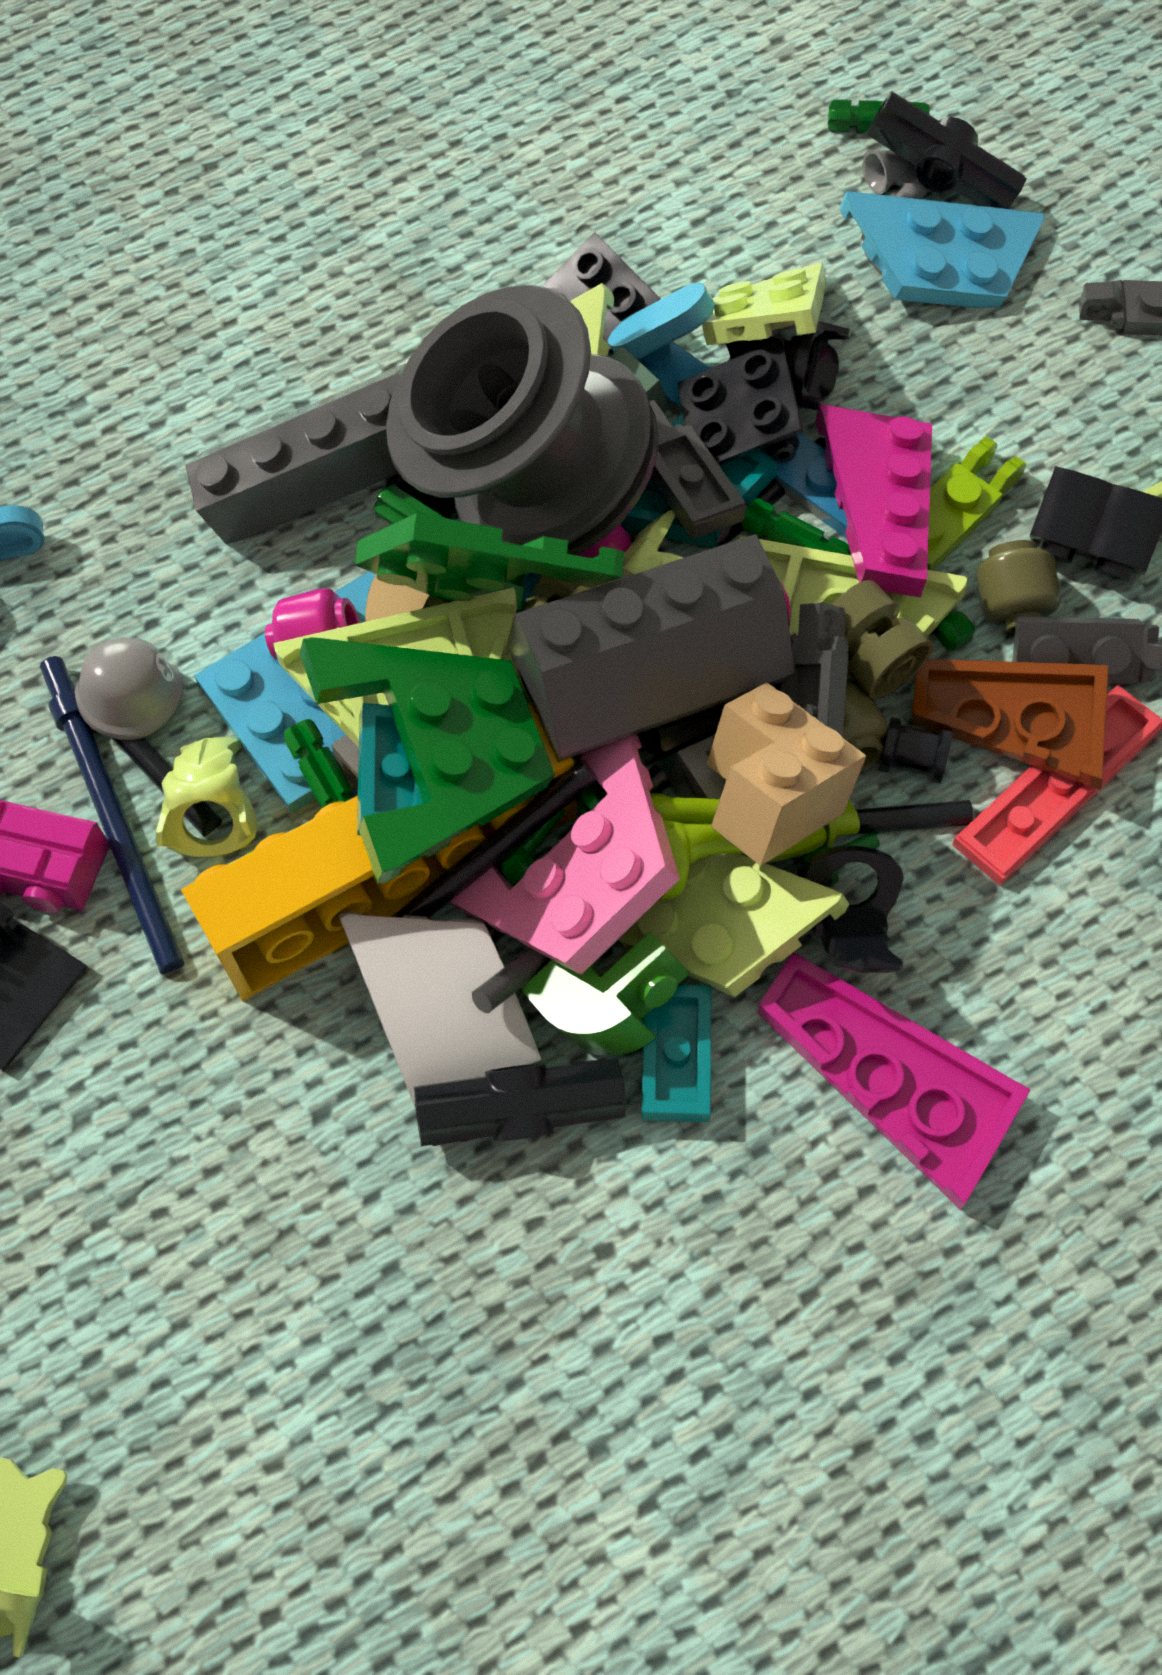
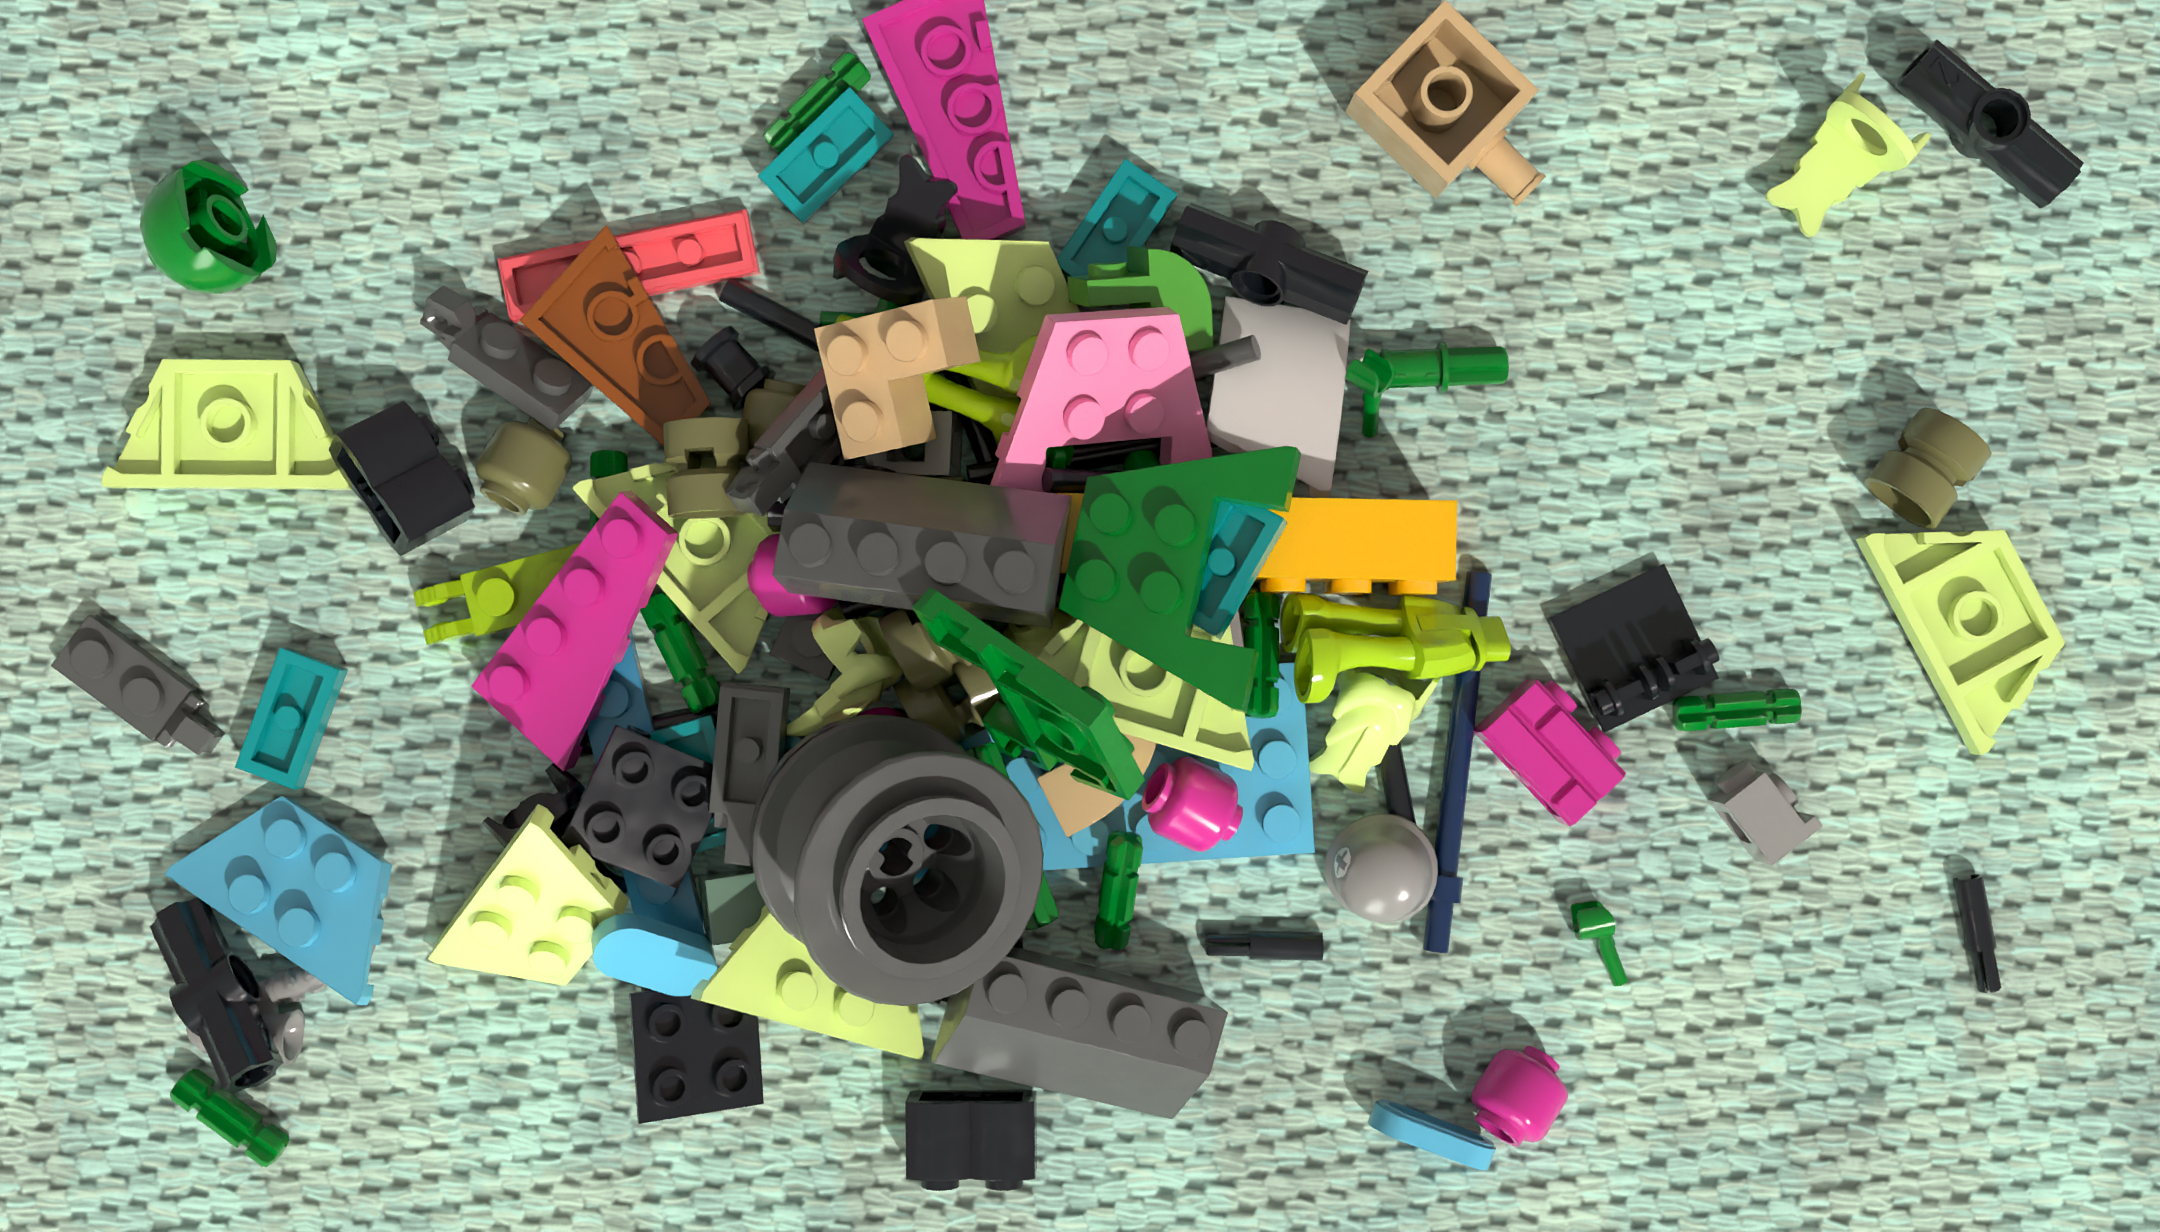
camera: 155 degrees left, 25 degrees up
(183, 848) = (1418, 638): none -> lime piece
(195, 597) = (1269, 945): none -> black pin
(302, 1117) = (1448, 366): none -> green axle
(338, 559) = (1118, 890): none -> green axle
(346, 352) = (971, 1137): none -> black brick
(362, 1052) = (1373, 377): none -> green hand
(435, 1345) = (1447, 107): none -> tan brick
(970, 960) = (826, 156): none -> teal plate
(1012, 1002) = (815, 99): none -> green axle
(1042, 344) = (291, 718): none -> teal plate

